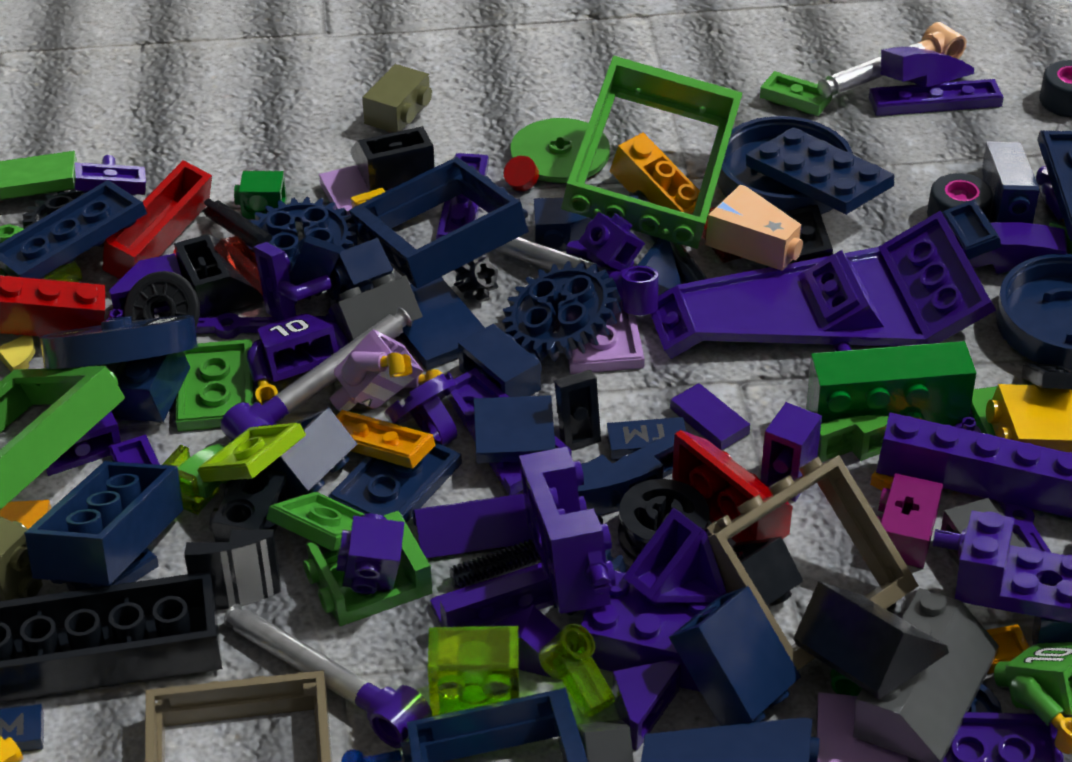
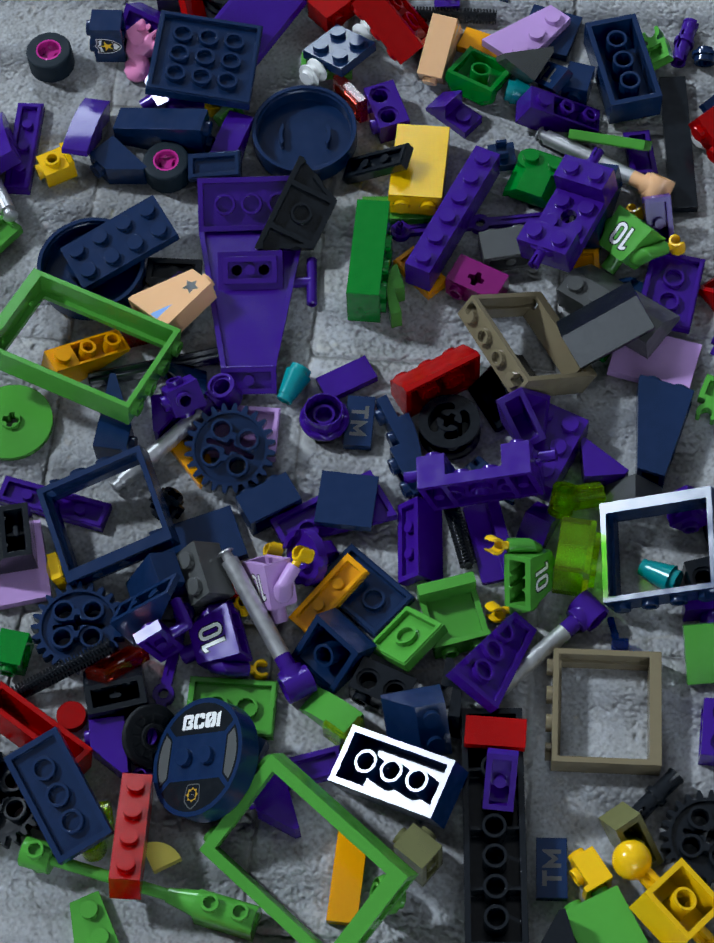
camera: 75 degrees left, 20 degrees up
(94, 612) = (500, 779): none -> dark purple slope
(170, 606) = (495, 732): none -> red tile
(202, 519) = (418, 718): none -> dark blue slope
(251, 452) = (351, 672): lime plate -> none
(280, 595) = (493, 662): none -> dark purple wing
(370, 553) = (466, 602): dark purple brick -> none
(440, 601) = (526, 575): none -> bright green torso
(521, 173) = (39, 454): red tile -> none
(578, 409) = (339, 456): black plate -> none
(638, 393) = (324, 417): none -> dark purple piece
(685, 363) = (293, 382): none -> teal cone
(735, 658) = (593, 402): dark blue brick -> none
(789, 444) = (412, 333): dark purple brick -> none
(919, 120) = (55, 166): none -> yellow brick
(937, 309) = (298, 213): none -> black wing
(945, 155) = (117, 164): none -> dark blue slope
(976, 121) = (86, 127): none -> dark purple slope

